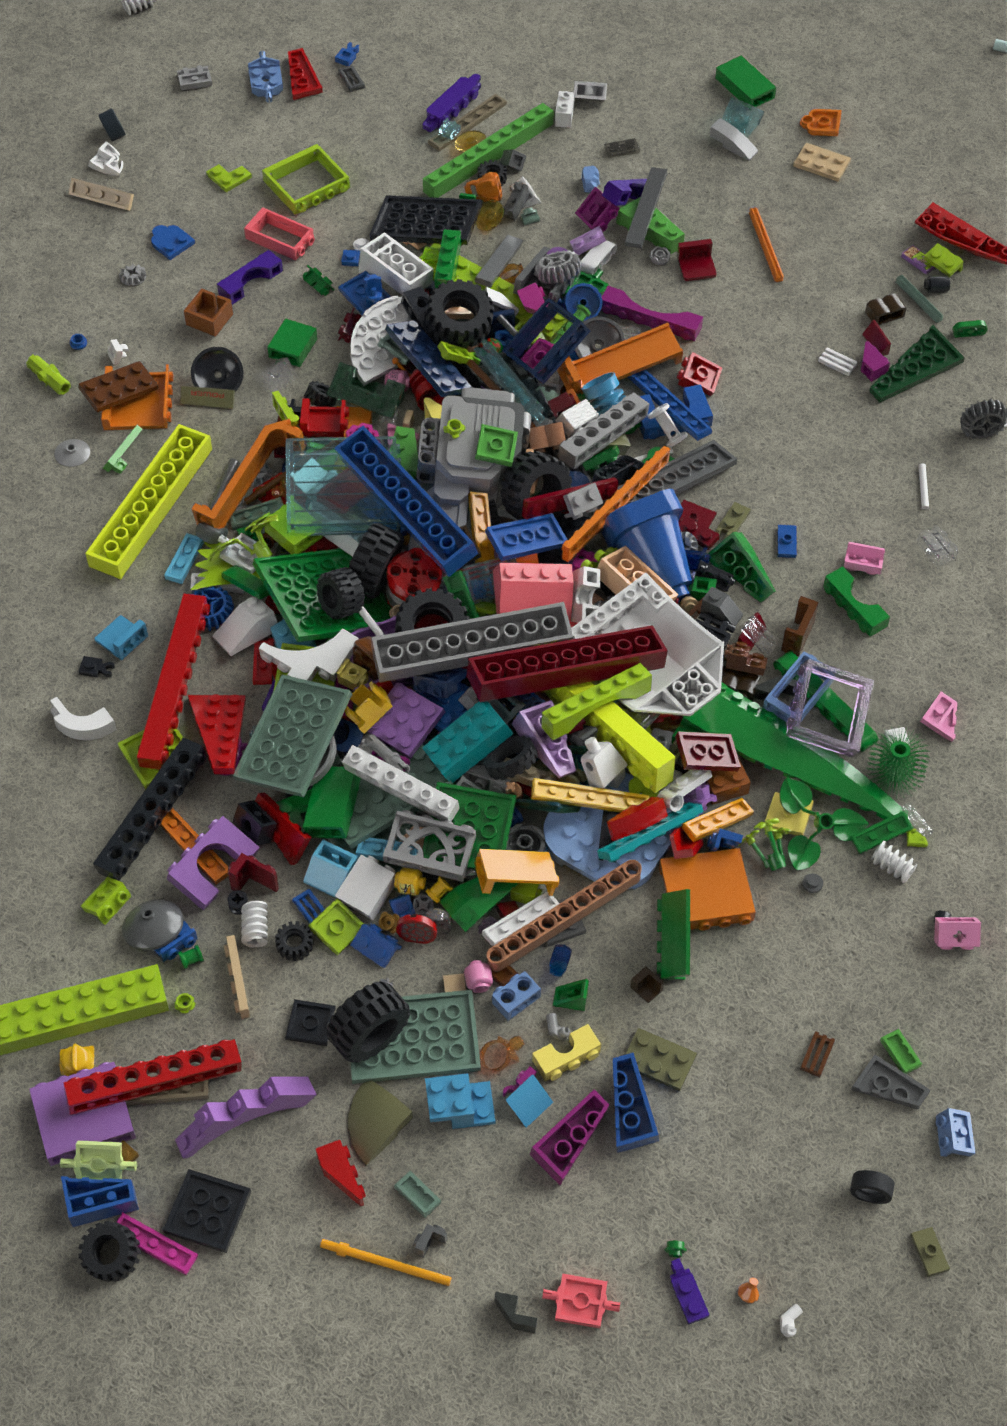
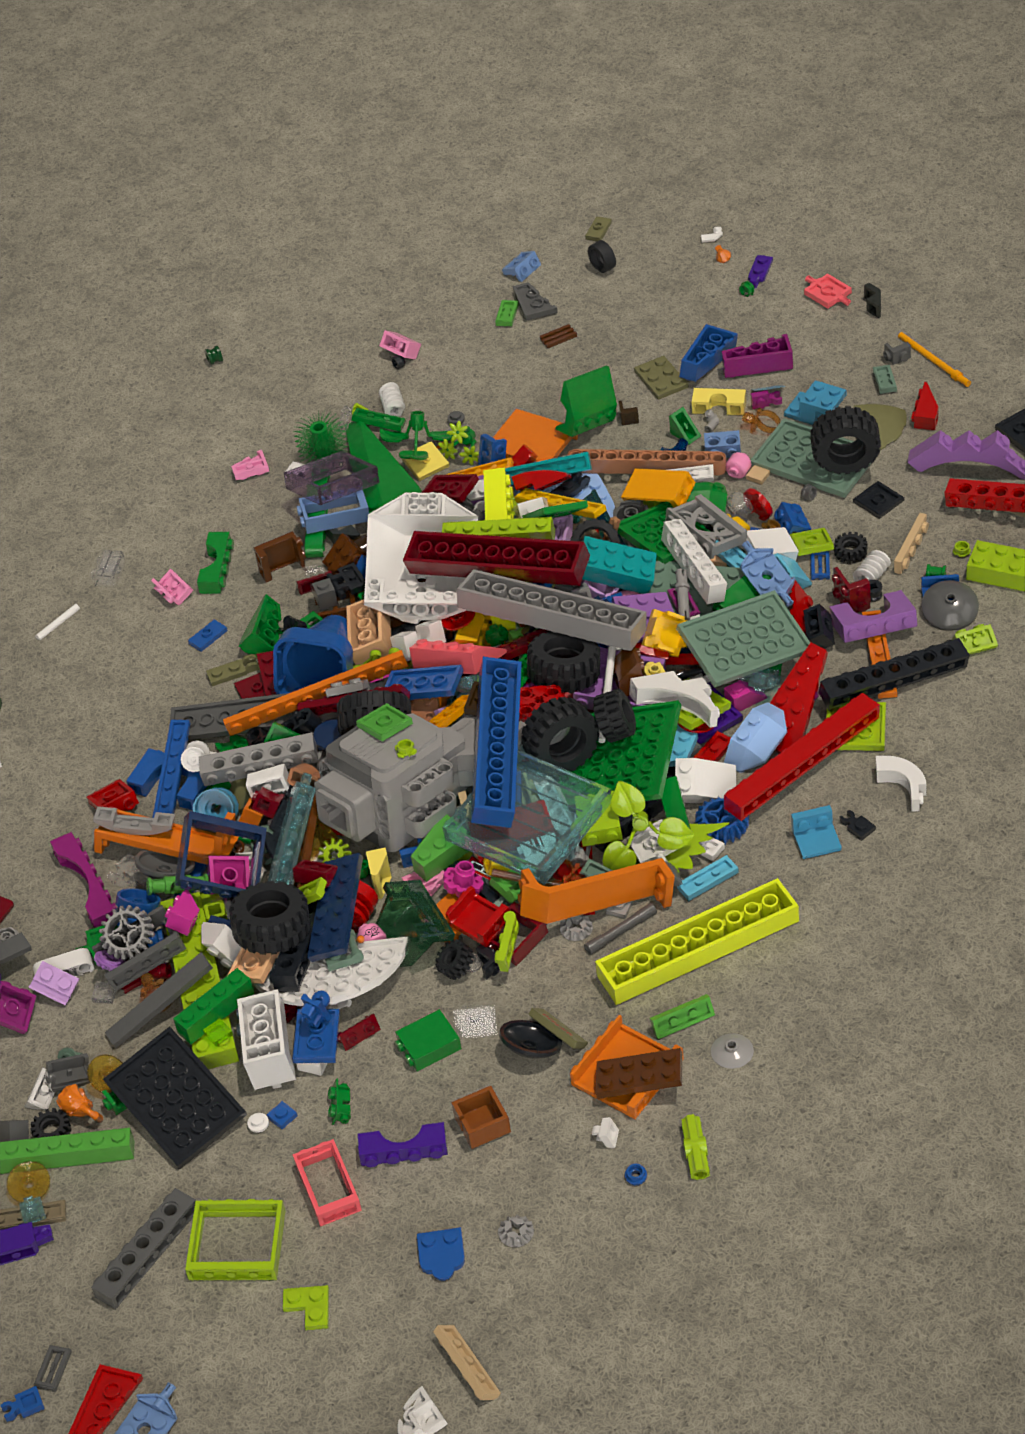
camera: 135 degrees left, 10 degrees down
(226, 686) = (756, 737): none -> light blue wedge
(311, 805) = (763, 562): none -> medium blue plate
(358, 148) = (143, 1259): none -> dark grey brick
(464, 365) = (308, 871): none -> dark red slope
(564, 748) = (558, 510): none -> green tile
(651, 347) = (133, 825): none -> light grey slope

